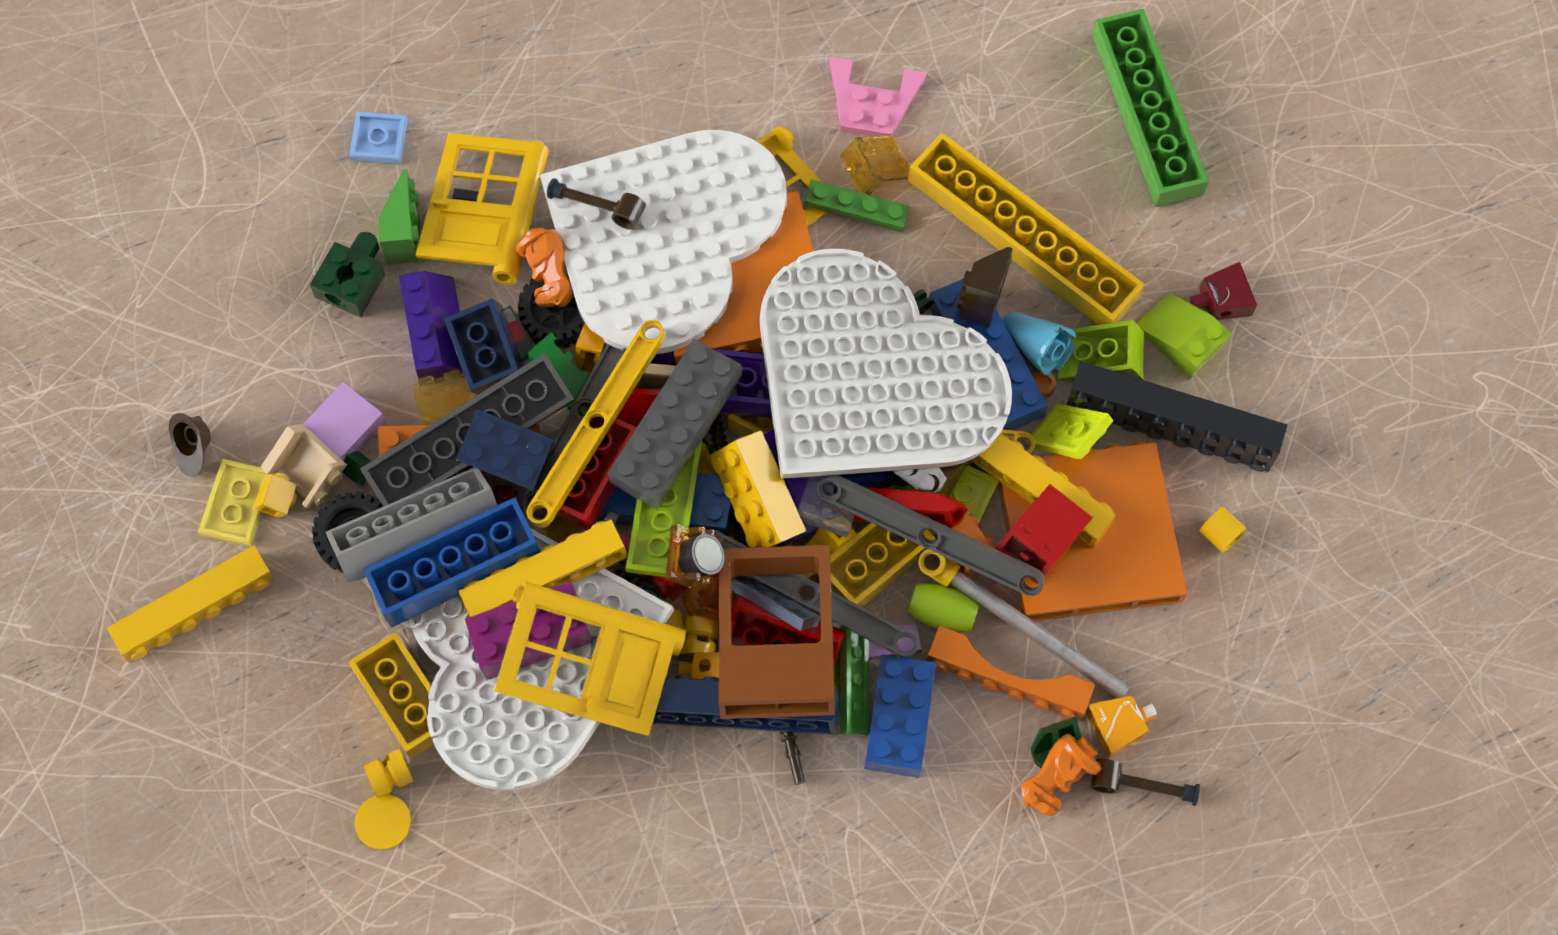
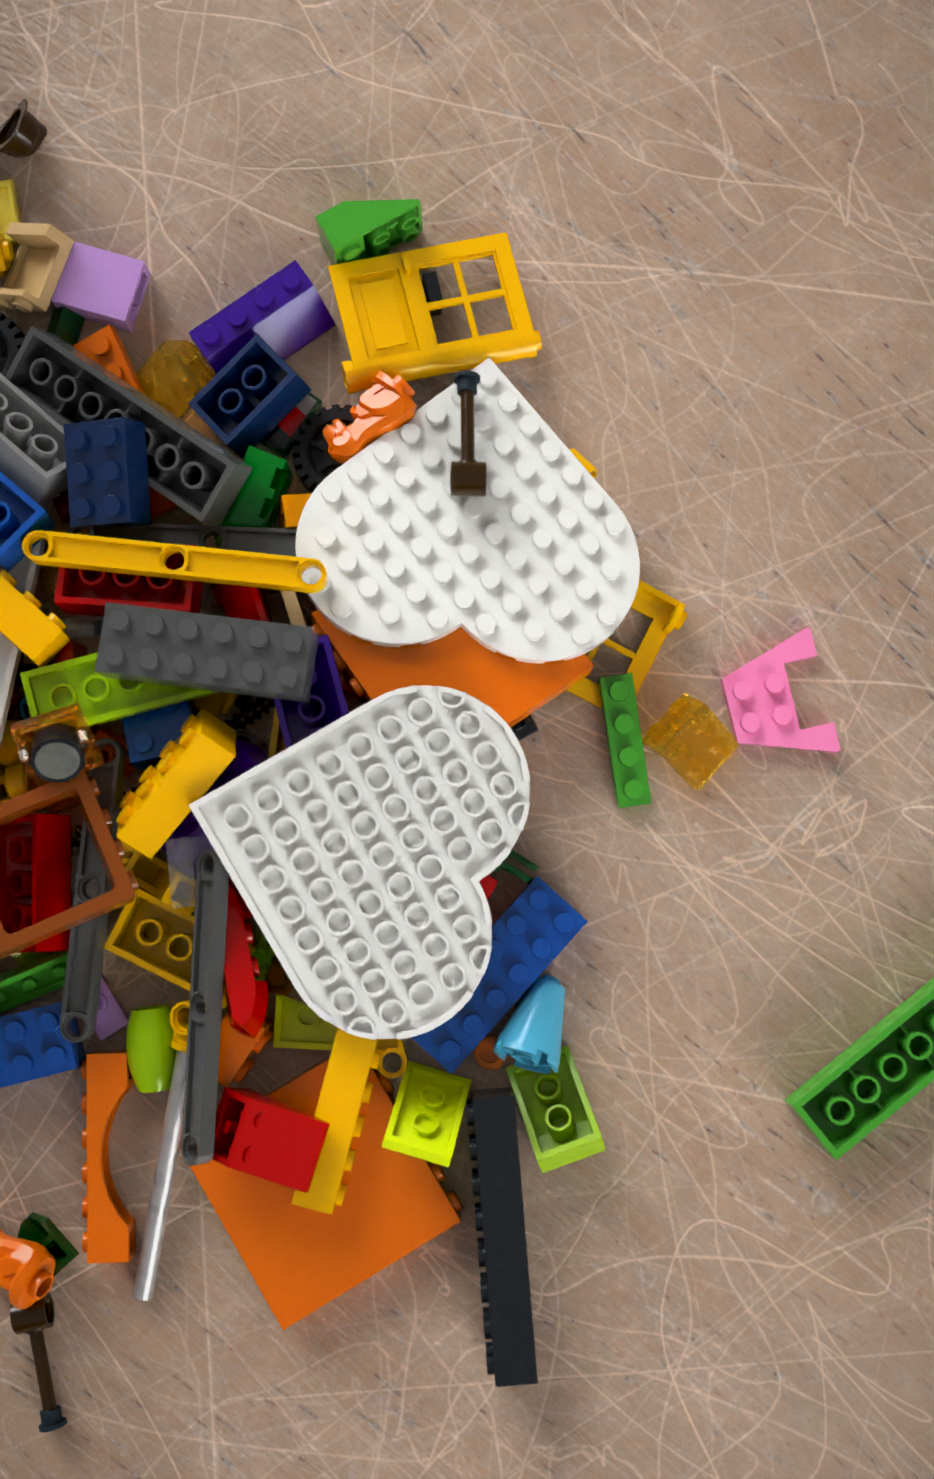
camera: 70 degrees right, 15 degrees up
(358, 273) = (279, 221): dark green brick -> none
(378, 137) = (471, 159): light blue tile -> none
(775, 603) = (61, 864): sand blue tile -> none
(983, 287) = (561, 945): dark brown wedge -> none
(1038, 238) = (672, 958): yellow brick -> none
(1119, 723) = (101, 1306): light orange torso -> none
(1184, 333) = (626, 1198): lime slope -> none
(1223, 529) = (387, 1341): yellow piece -> none
(1226, 294) = (700, 1231): dark red torso -> none

